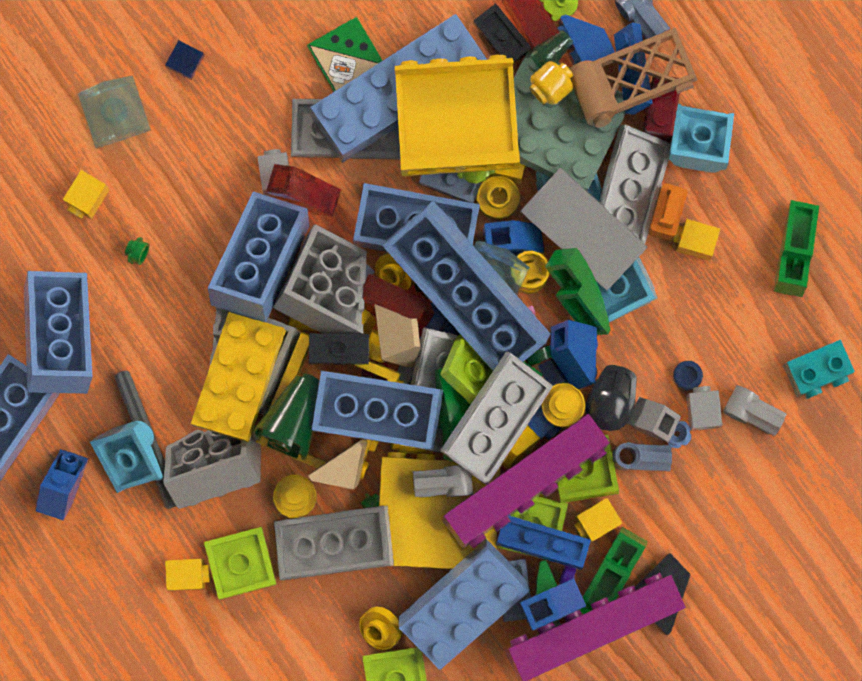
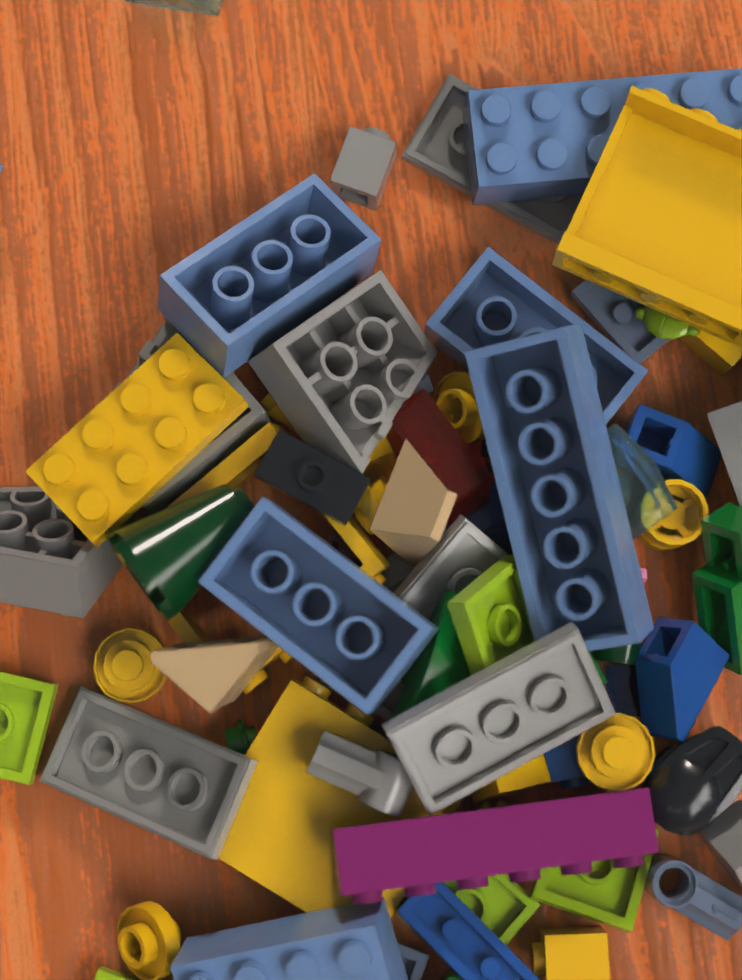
camera: 35 degrees right, 0 degrees up
(85, 195) = (69, 56): yellow brick -> none
(137, 251) = (100, 177): green plate -> none
(303, 190) = (391, 208): clear red brick -> none
(344, 53) = (561, 43): tile -> none
(498, 197) = (680, 377): yellow plate -> none

